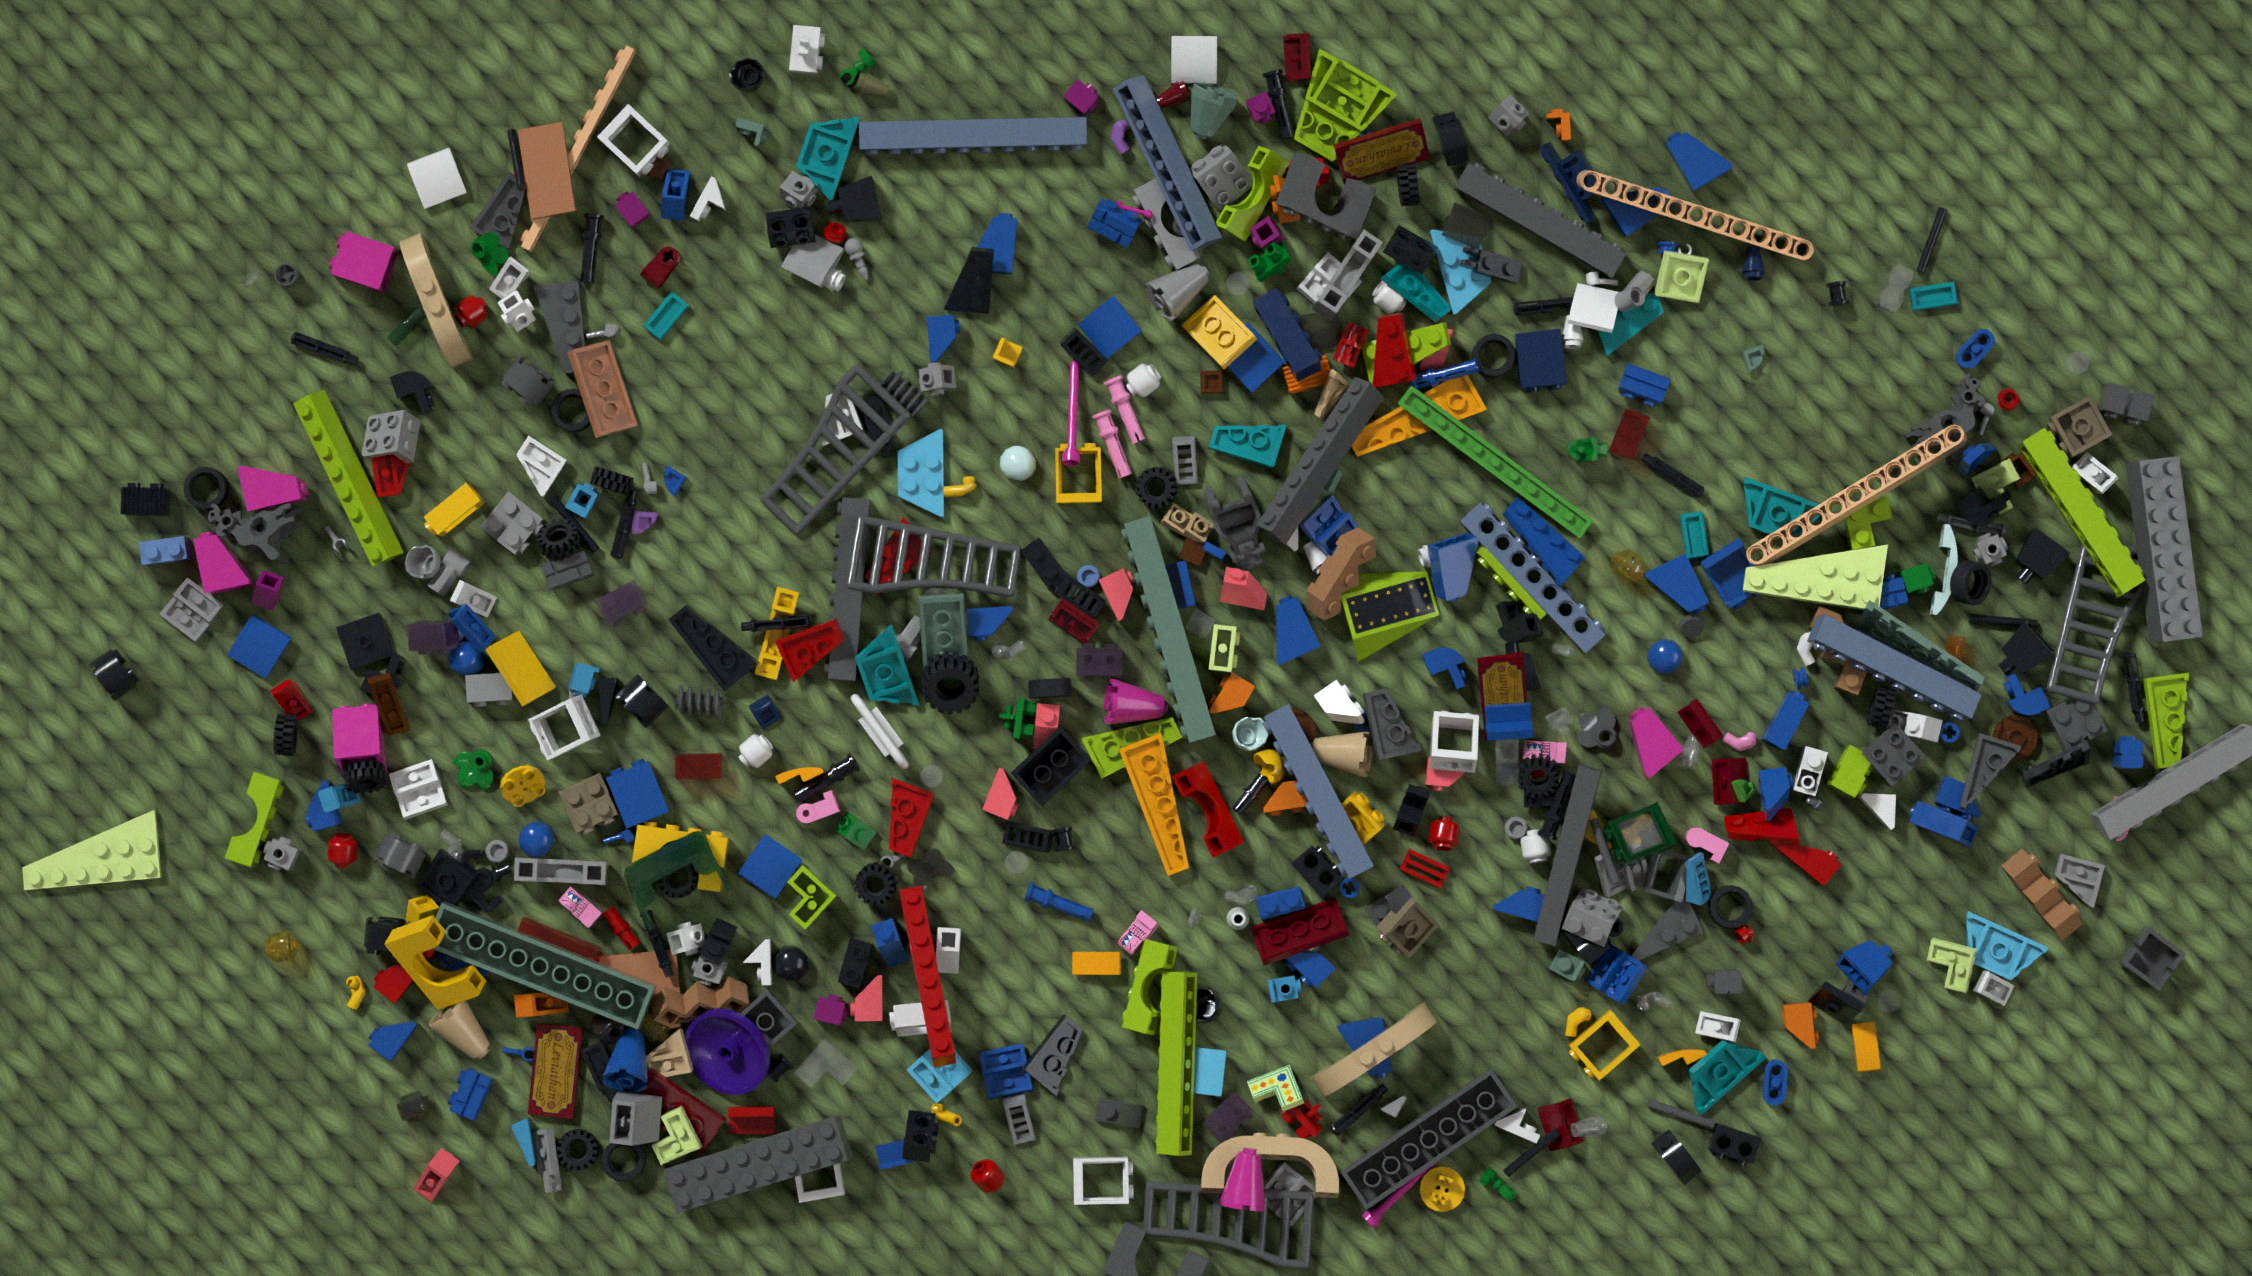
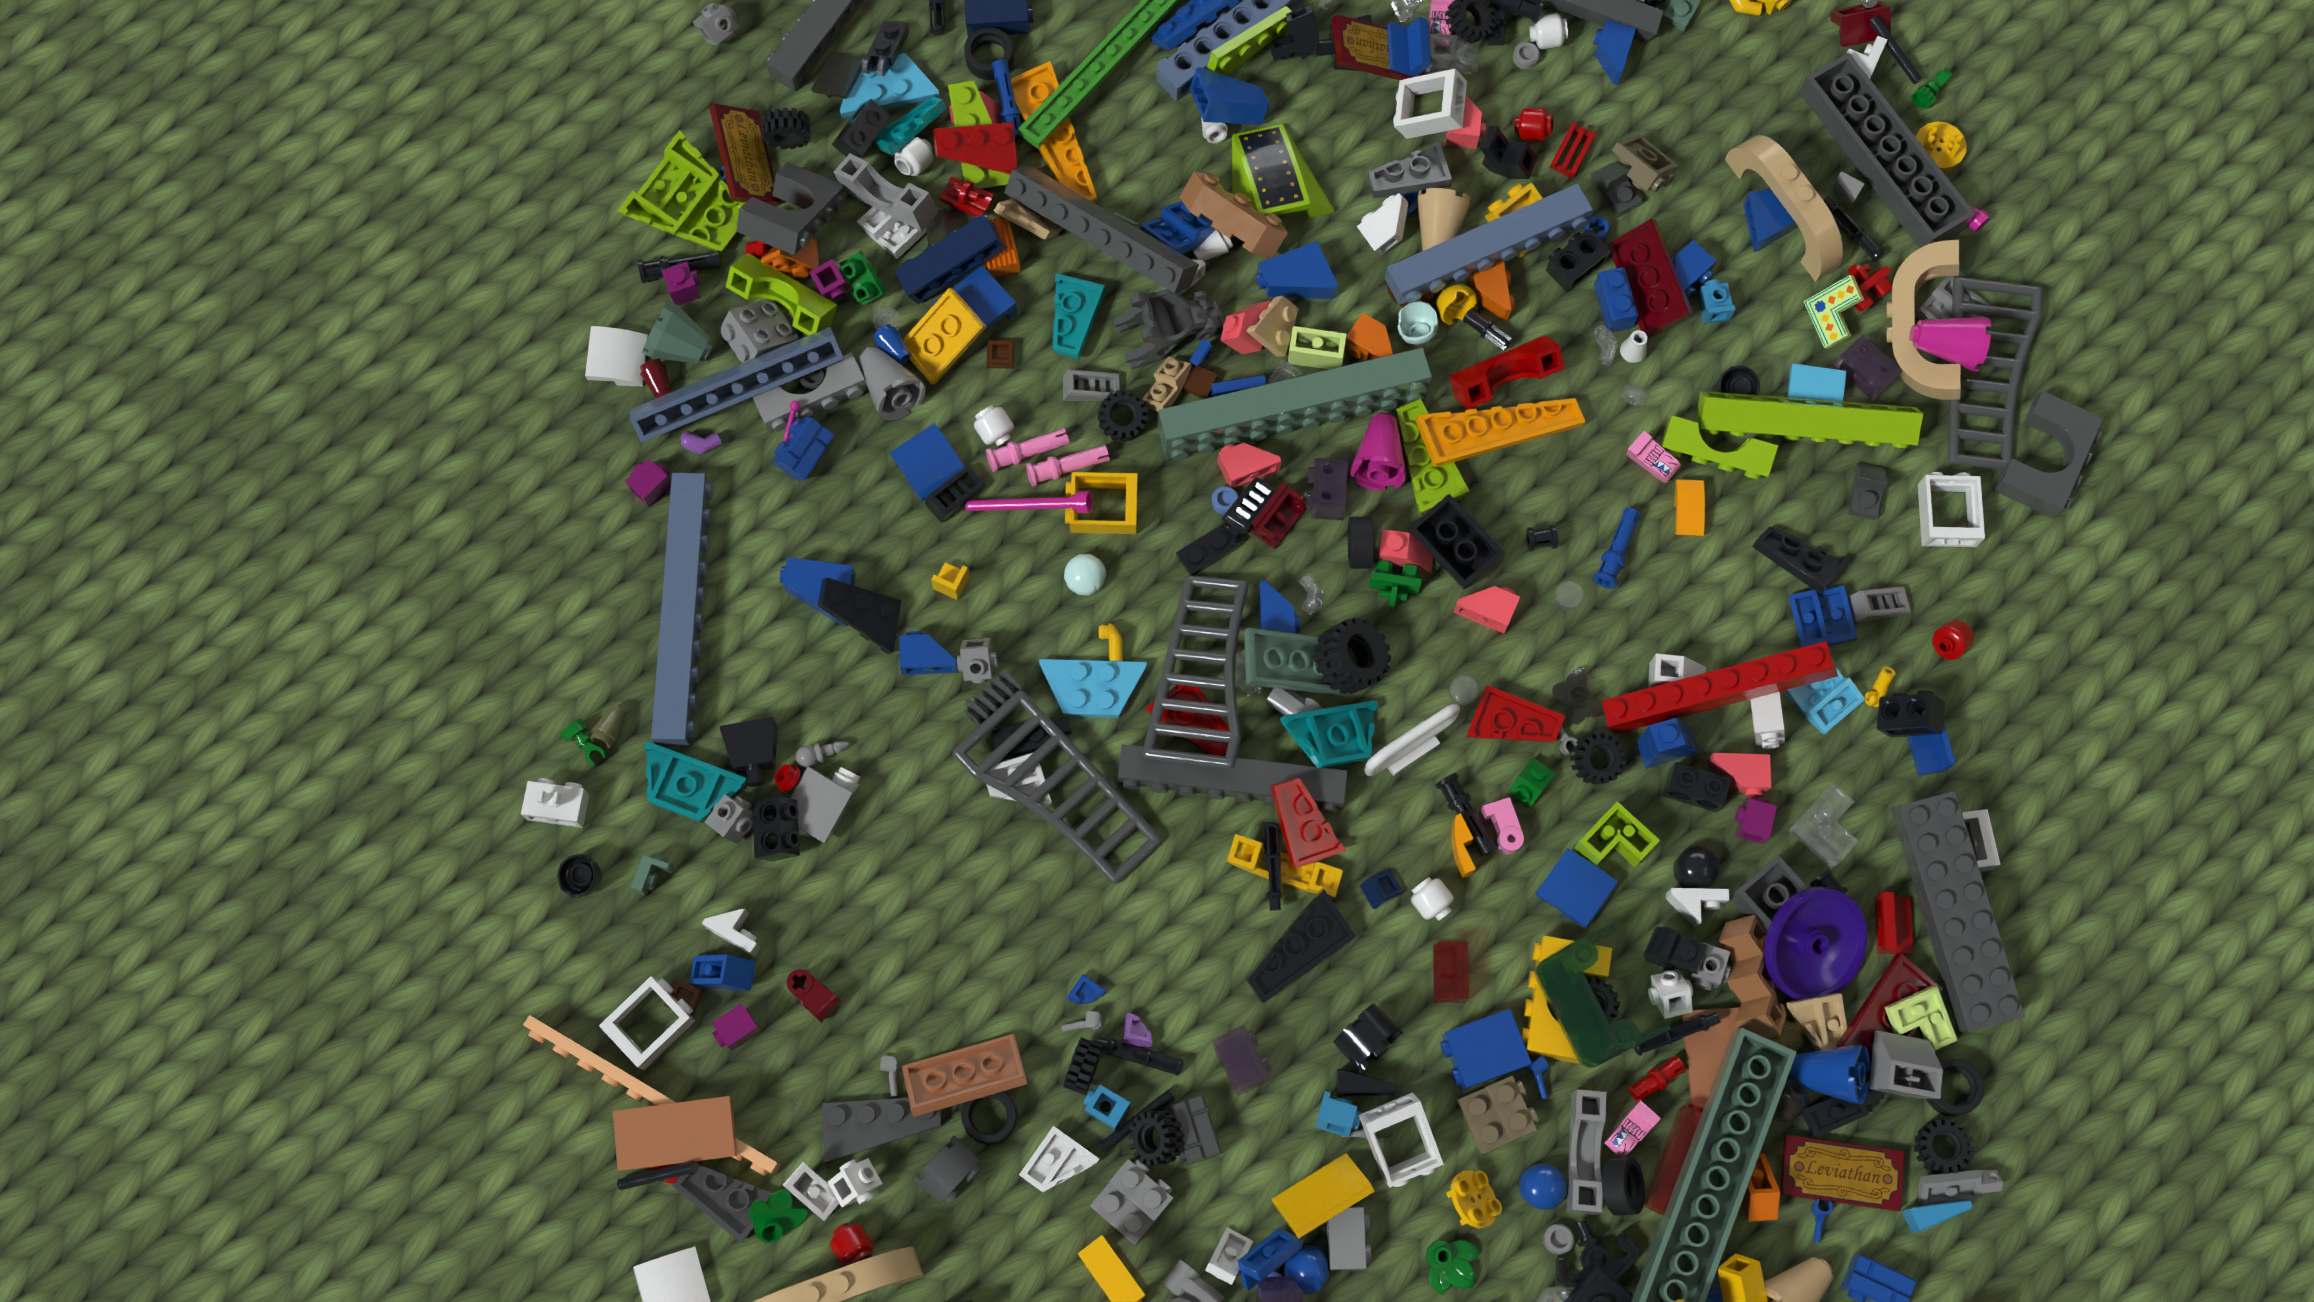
camera: 90 degrees left, 15 degrees down
(535, 889) = (1623, 1186): none -> black tyre
(591, 238) = (767, 1083): black pin -> none
(666, 315) = (875, 992): teal tile -> none
(699, 702) = (1368, 966): dark grey piece -> none
(1047, 839) = (1545, 559): black slope -> none
(1212, 290) = (891, 342): none -> blue cone
(1243, 613) = (1275, 325): none -> tan wing
(1297, 57) = (626, 243): dark red hinge -> none
(1443, 659) = (1337, 115): blue brick -> none
(1451, 138) = (737, 80): black brick -> none

